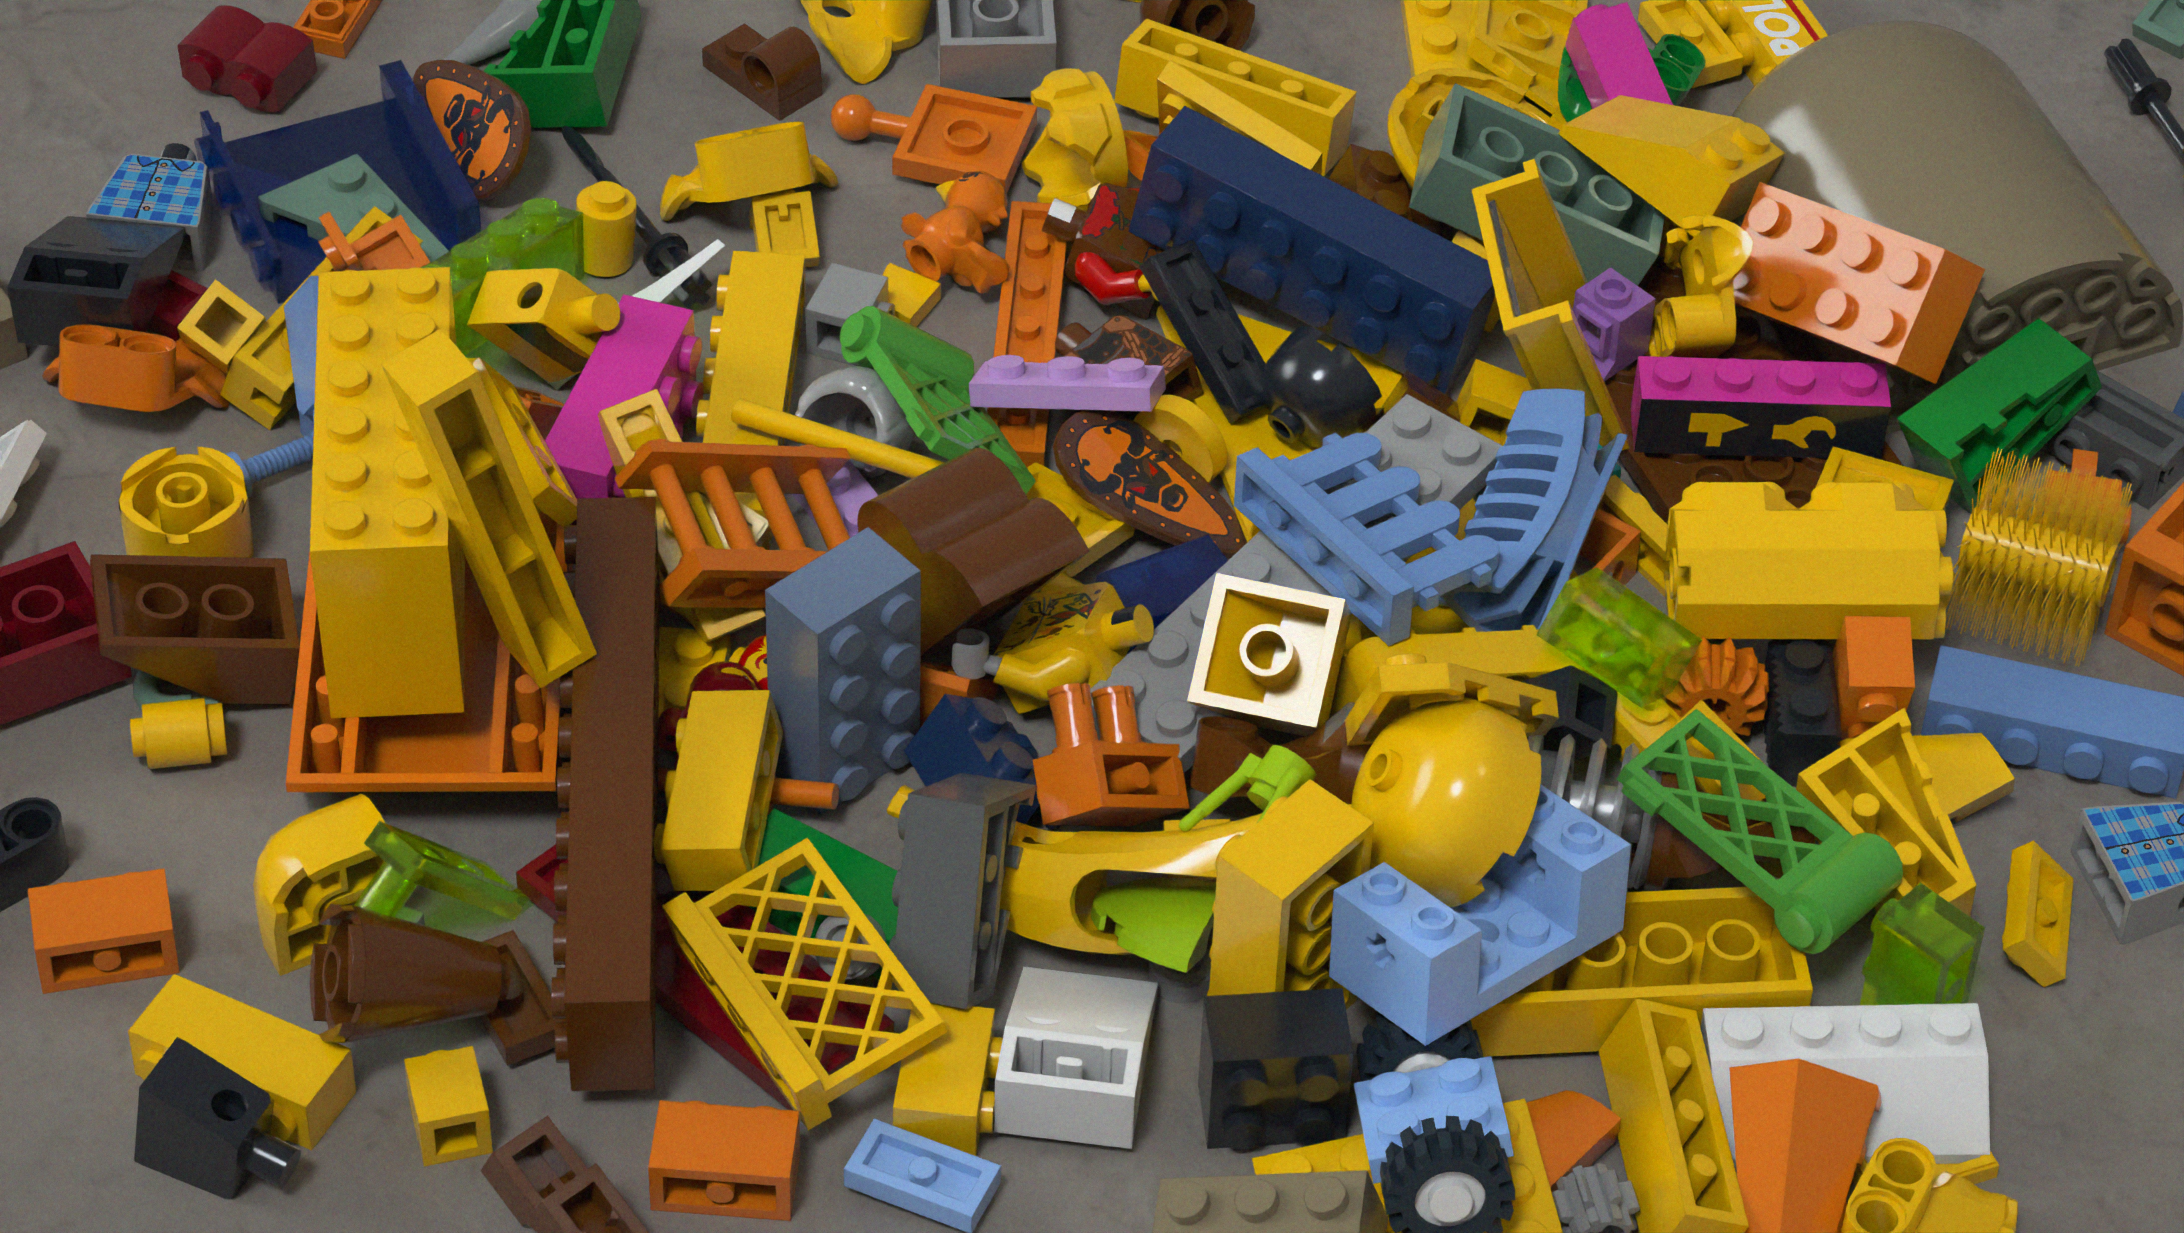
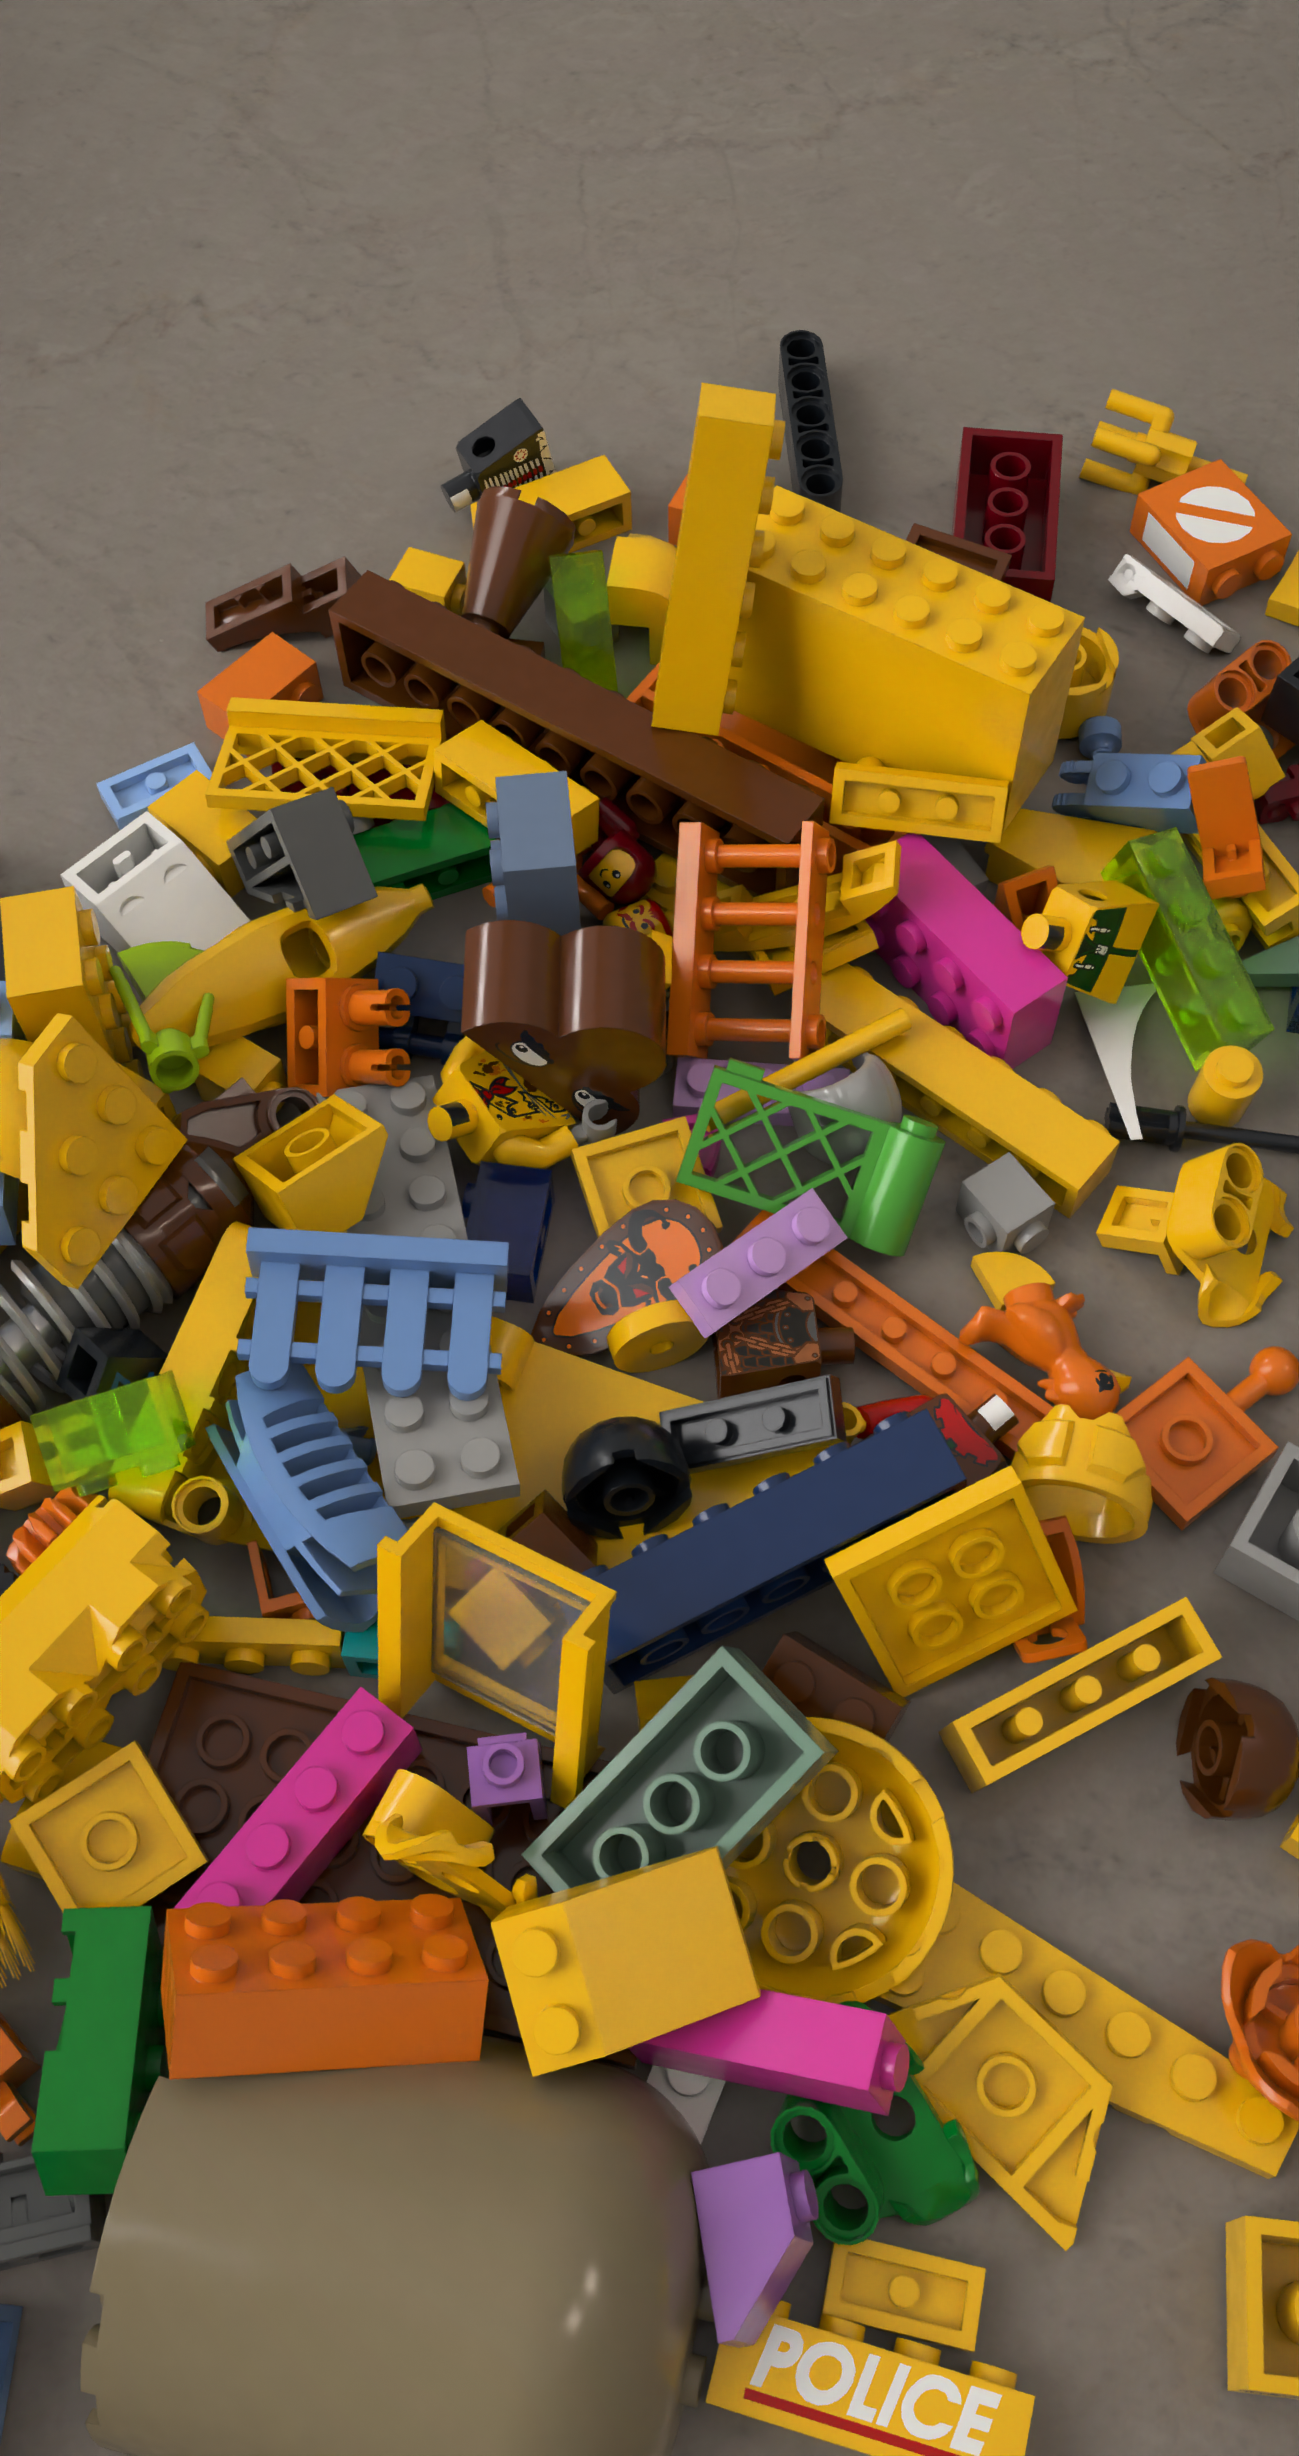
camera: 130 degrees right, 15 degrees up
(1741, 52) = (753, 2238): none -> medium lavender slope

